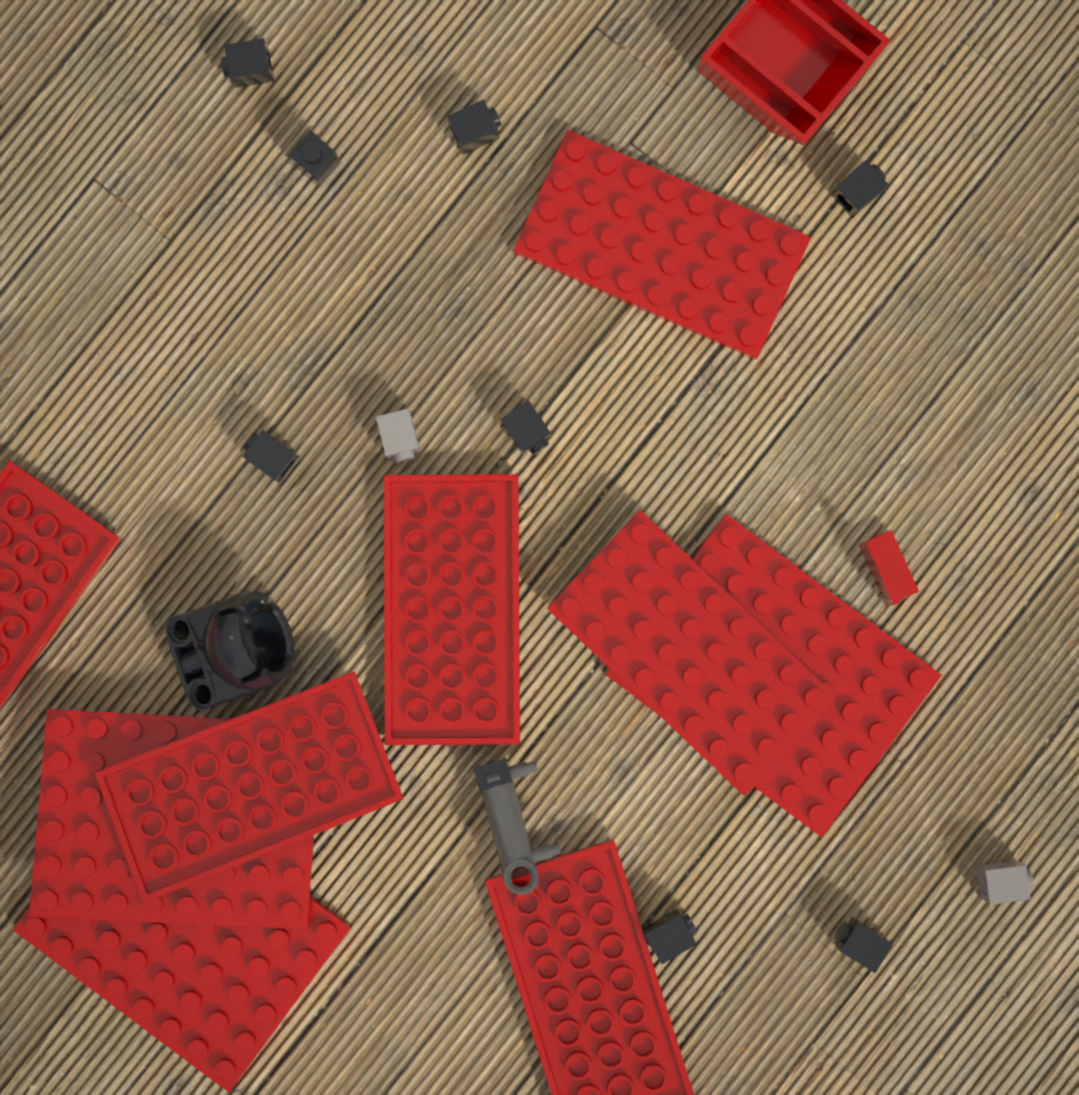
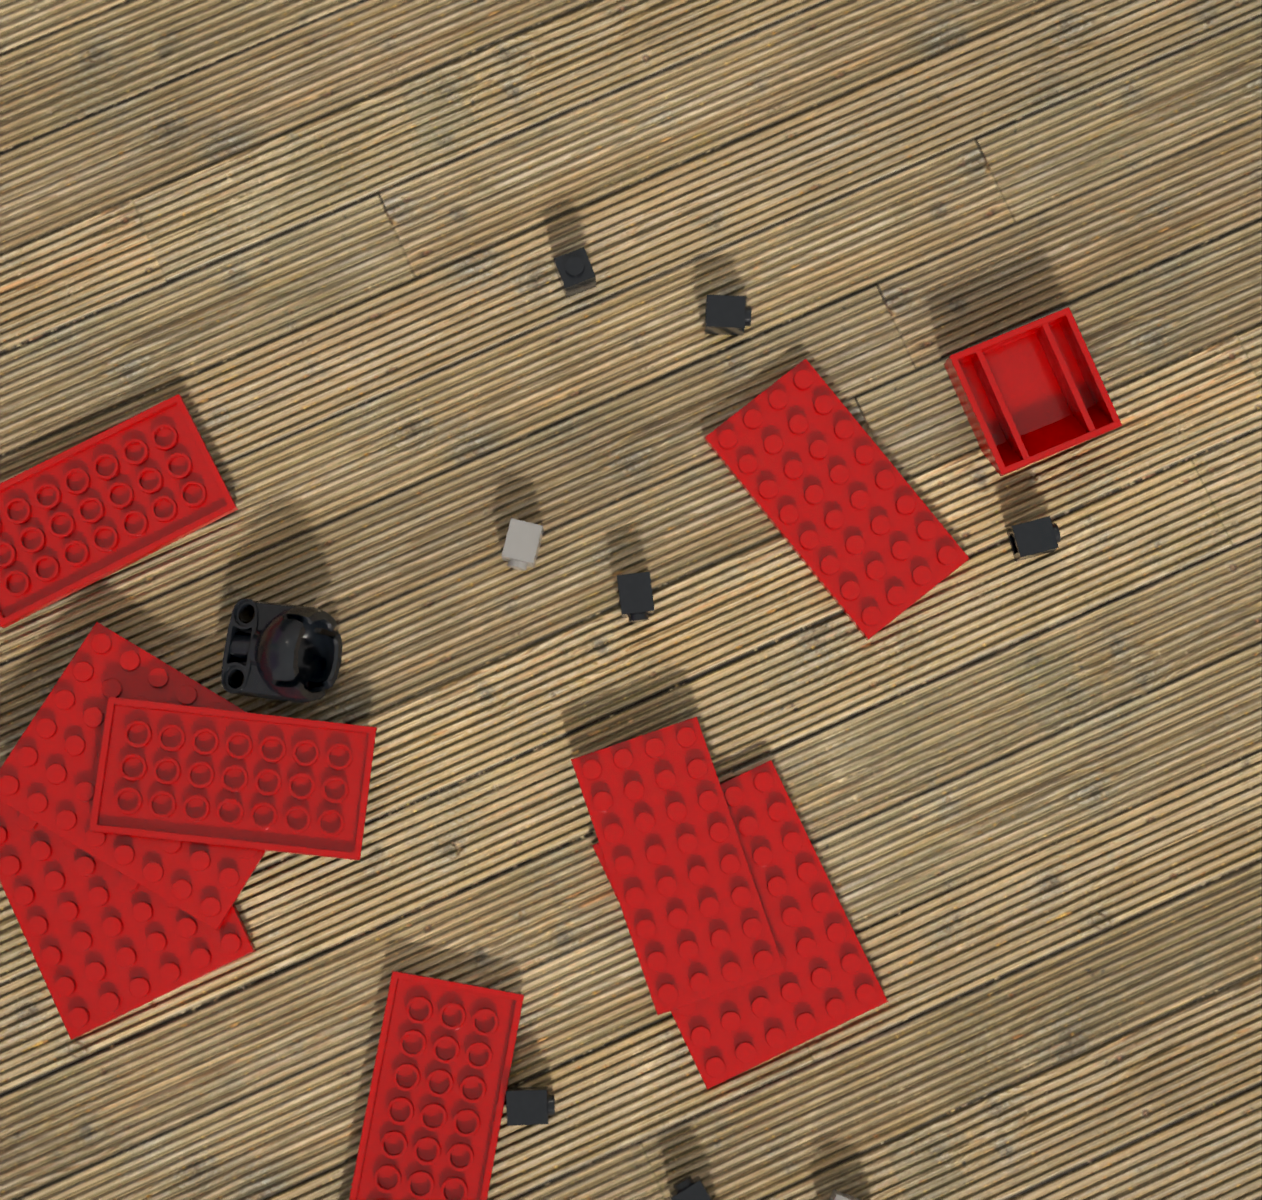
camera: 25 degrees right, 5 degrees down
(247, 63) = (561, 163): black brick -> none
(269, 455) = (402, 504): black brick -> none
(451, 609) = (488, 719): red plate -> none
(507, 822) = (438, 930): dark grey piece -> none
(888, 568) = (889, 882): red panel -> none

